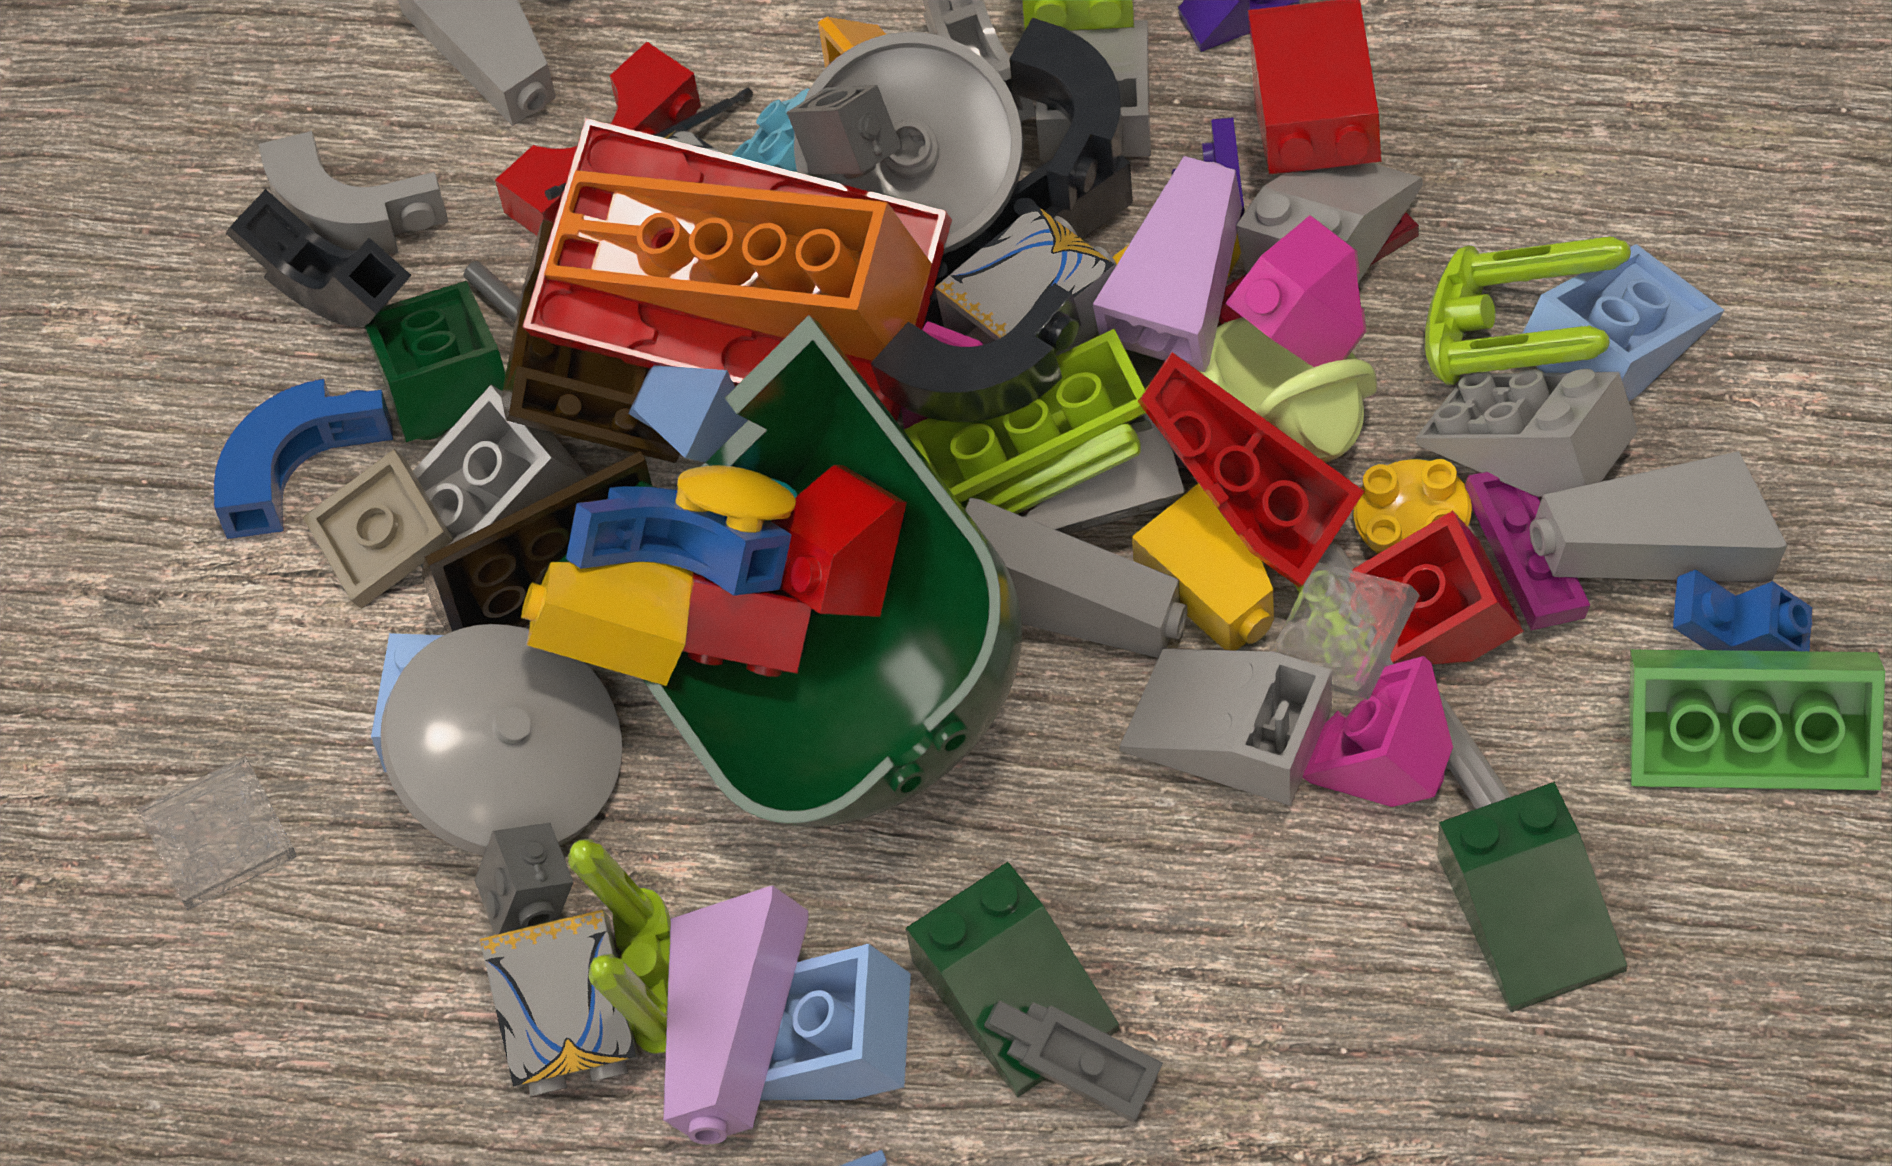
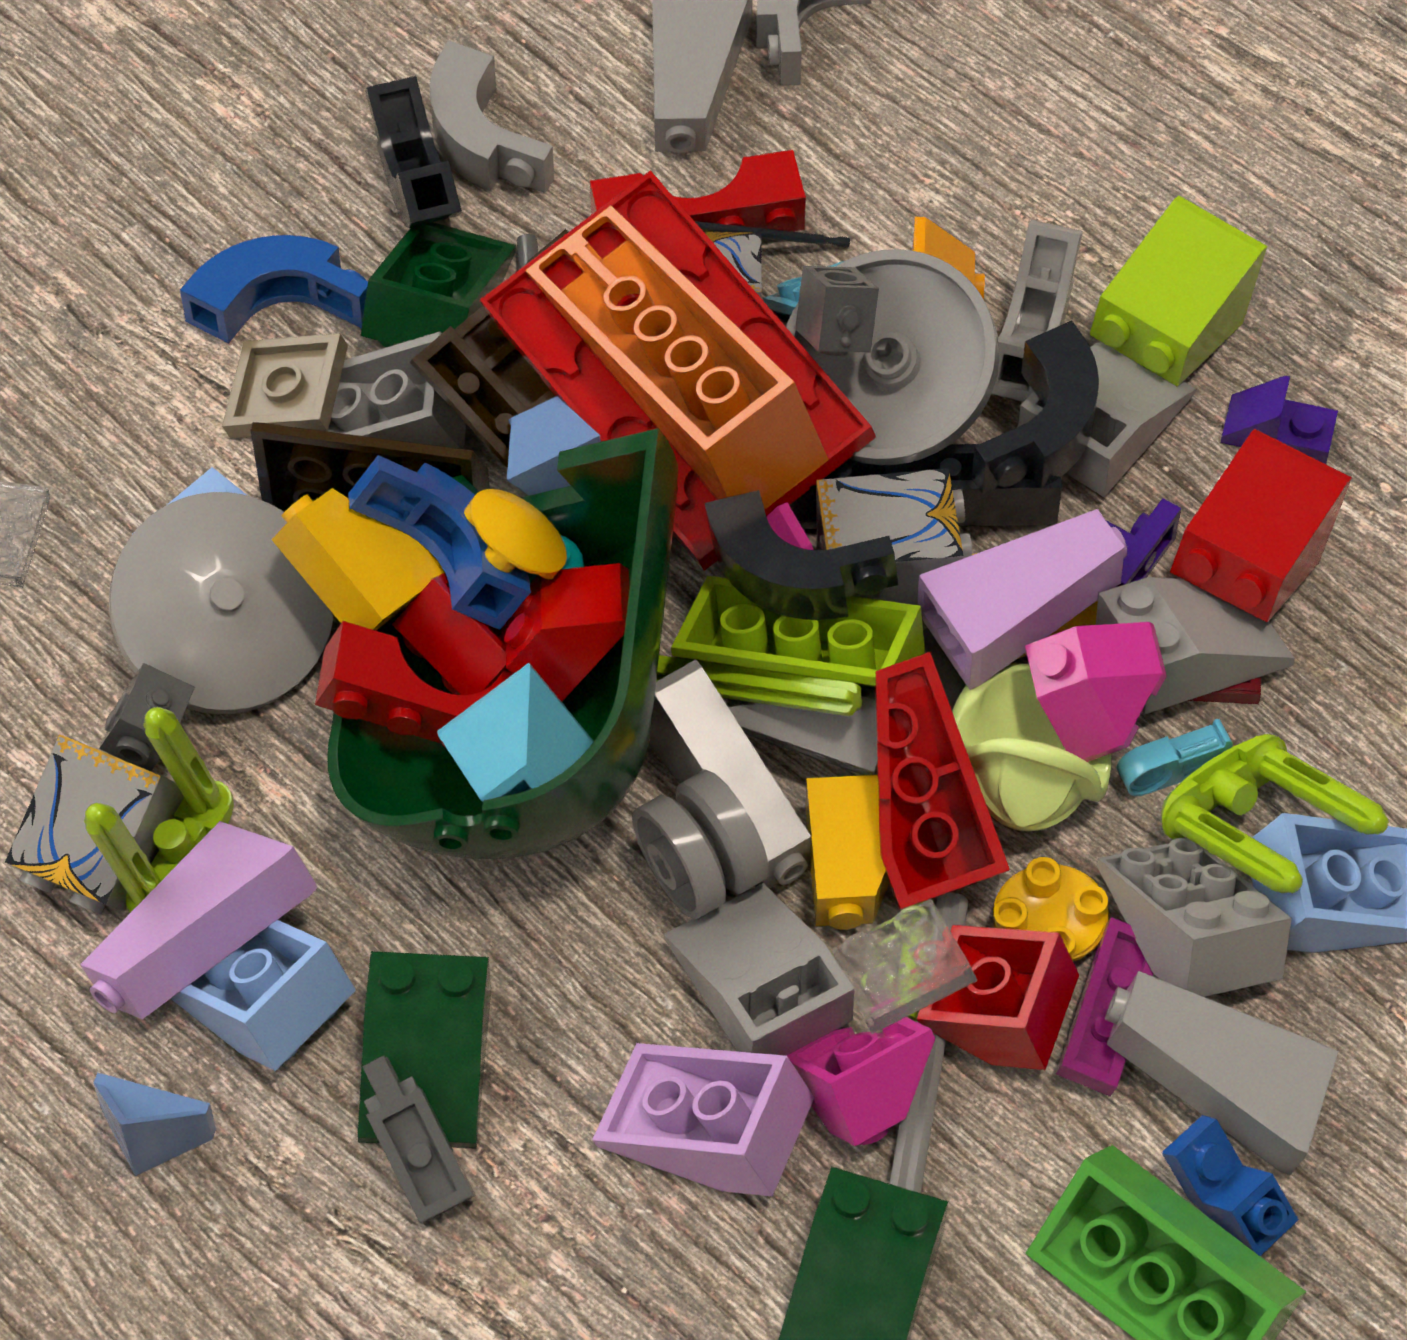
camera: 30 degrees right, 0 degrees up
(711, 704) = (370, 681): none -> red arch
(884, 670) = (515, 737): none -> medium azure slope
(1096, 648) = (700, 844): none -> light grey wheel
(1289, 861) = (708, 1115): none -> lavender slope
(1399, 320) = (1171, 760): none -> medium azure piece

